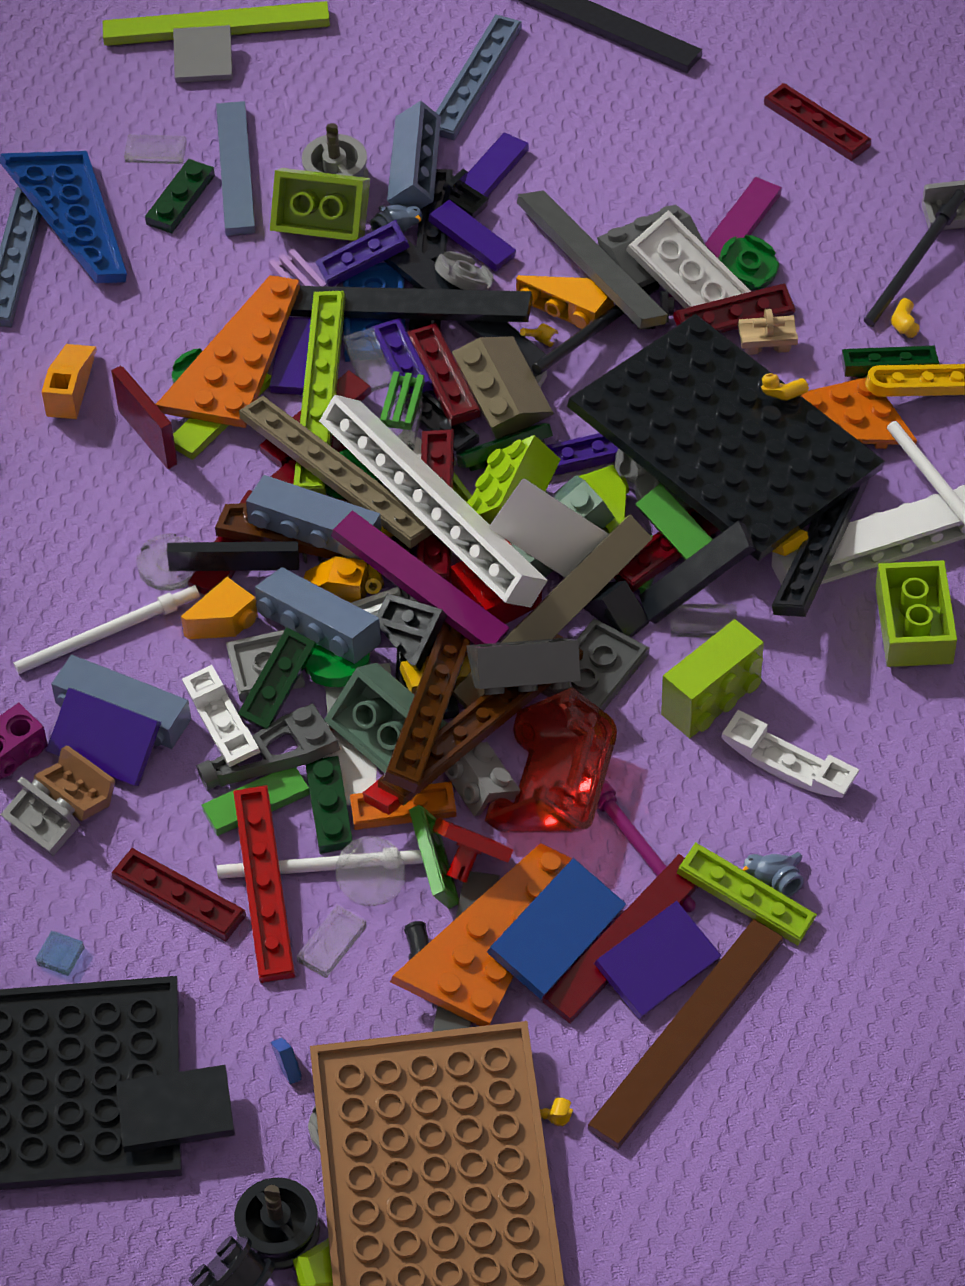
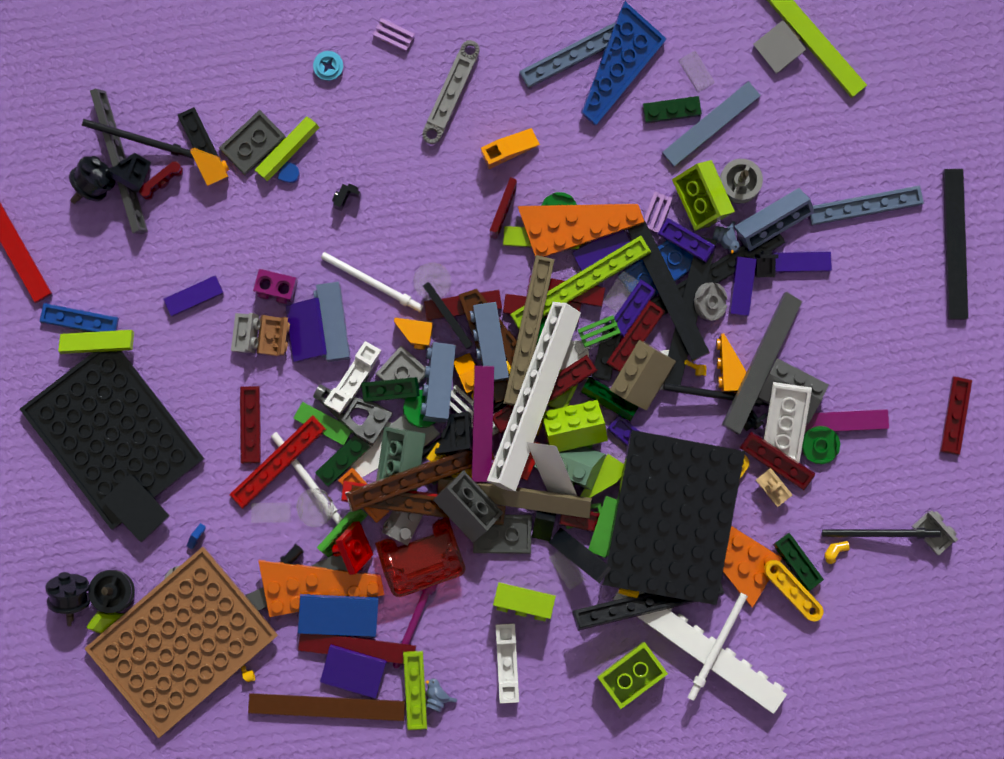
camera: 55 degrees right, 30 degrees up
(59, 953) = (186, 393): clear light blue tile -> none
(785, 392) = (718, 531): yellow arm -> none

